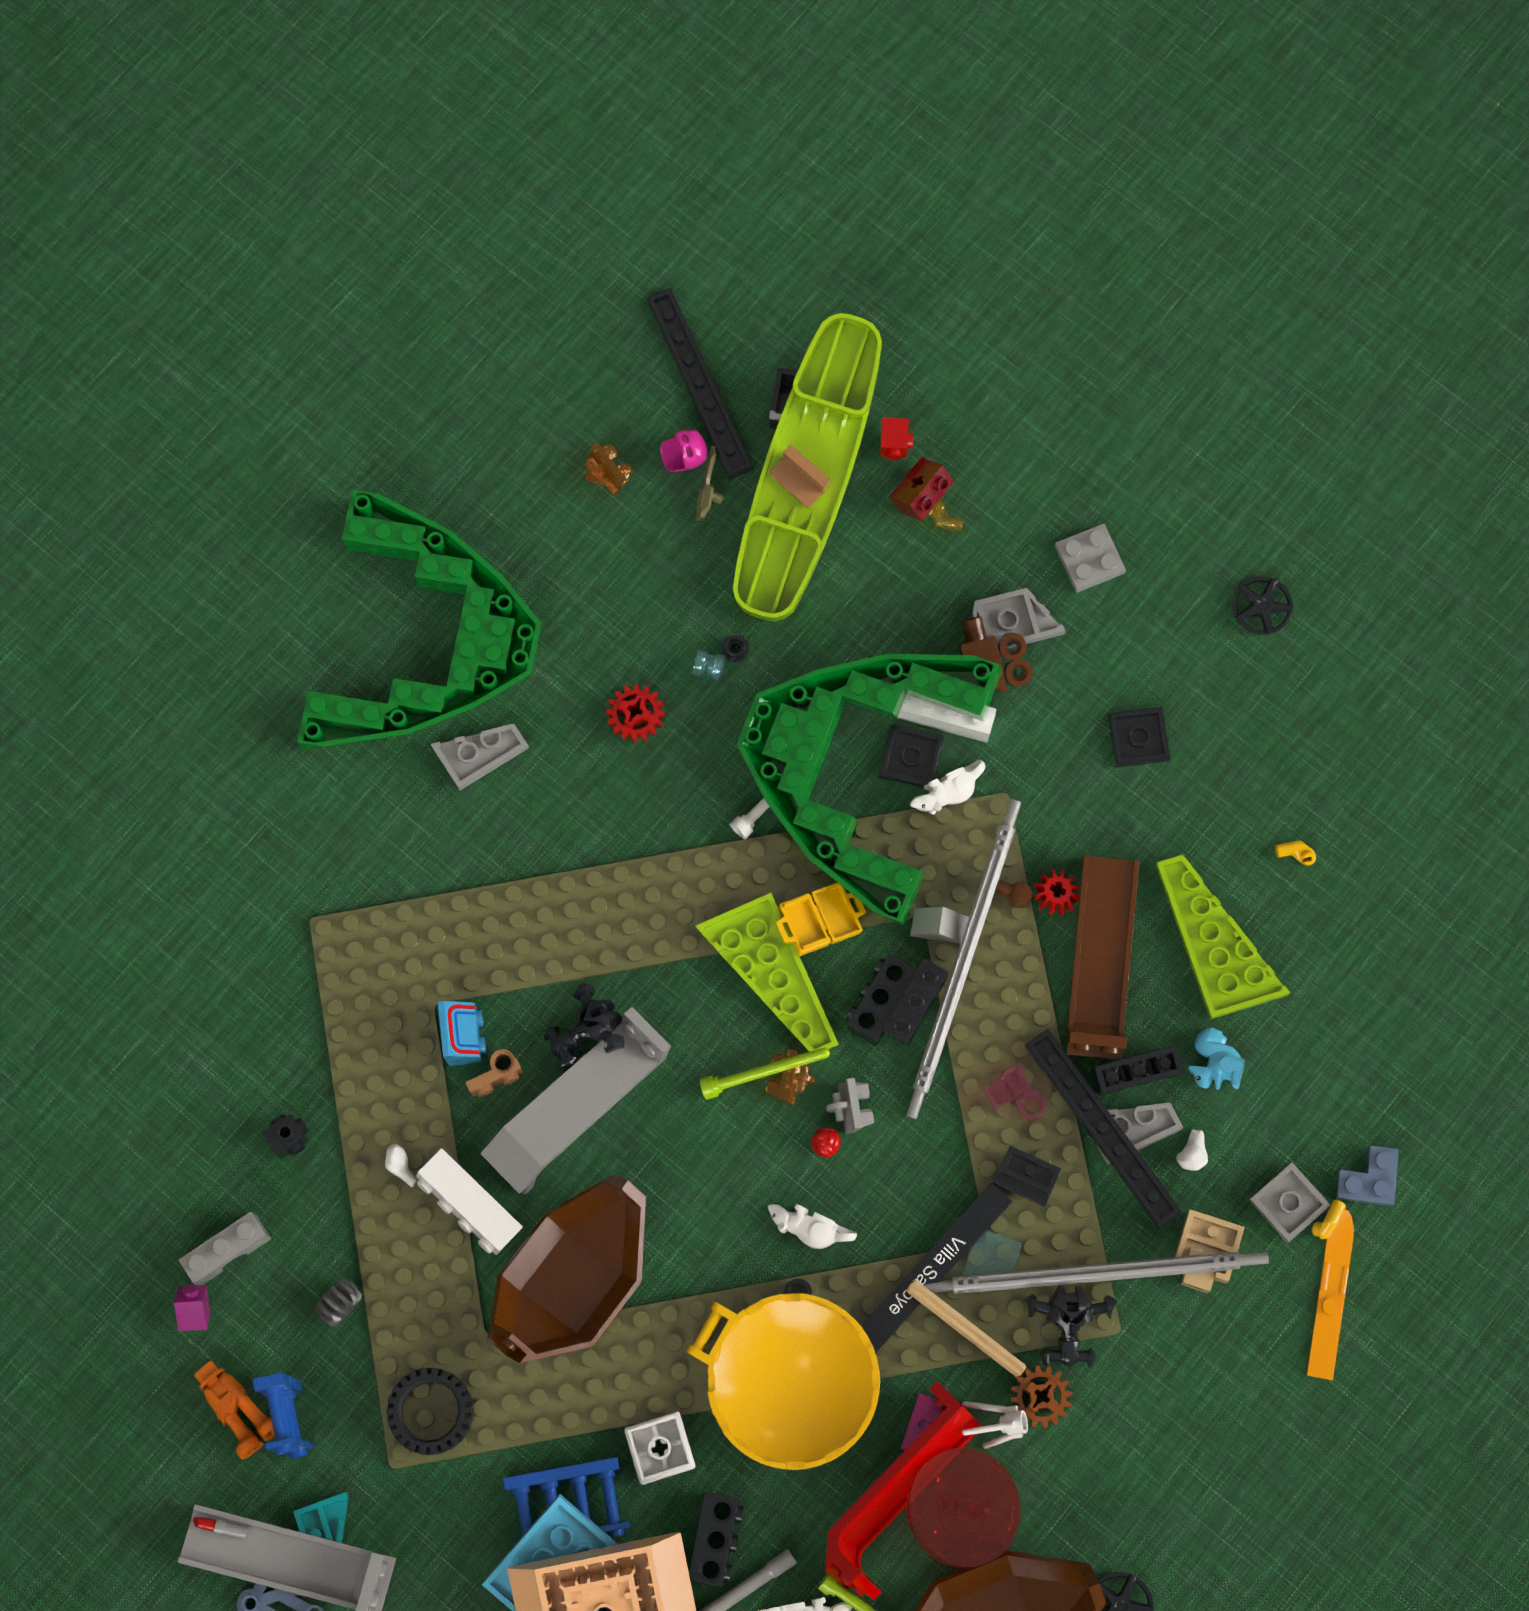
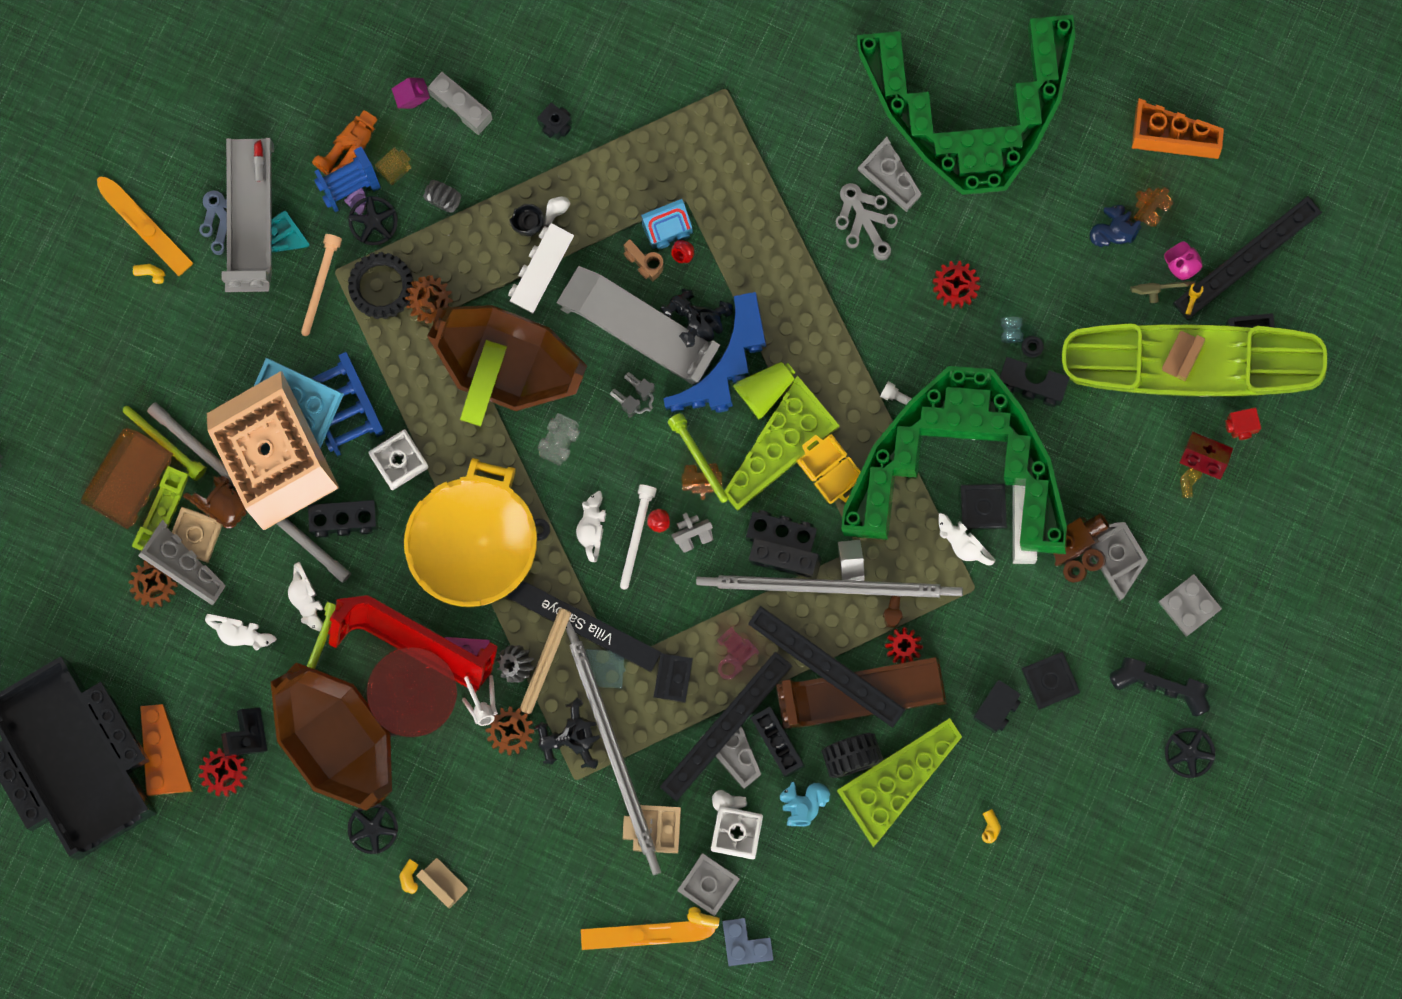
camera: 75 degrees right, 5 degrees up
(278, 1354) = (393, 165): none -> clear yellow brick
(309, 1415) = (354, 198): none -> lavender tile
(341, 1400) = (373, 220): none -> black wheel
(356, 1463) = (331, 244): none -> light nougat piece
(402, 1202) = (527, 220): none -> black hair
(467, 1353) = (426, 290): none -> dark orange gear
(498, 1024) = (682, 251): none -> red piece
(522, 798) = (864, 217): none -> light grey plant
(526, 424) = (1174, 133): none -> orange wedge
(594, 1311) = (483, 383): none -> lime slope
(626, 512) = (1119, 231): none -> dark blue animal
(671, 1138) = (631, 405): none -> piece
(682, 1028) = (733, 366): none -> blue arch
(686, 1233) = (559, 437): none -> clear brick
(699, 968) = (765, 387): none -> lime cone
(729, 452) = (1193, 296): none -> yellow hand
(790, 1150) = (646, 495): none -> white piece
(794, 640) = (1049, 390): none -> black arch
(969, 1363) = (515, 663): none -> dark grey gear
(1060, 988) = (827, 667): none -> black tile
(1156, 804) = (997, 706): none -> black brick
(1177, 985) = (852, 755): none -> black tyre
(1192, 582) = (1133, 671): none -> black plate
(1193, 1578) = (406, 877): none -> yellow arm
(1210, 1534) = (442, 883): none -> tan panel
(1251, 1142) = (745, 845): none -> white brick

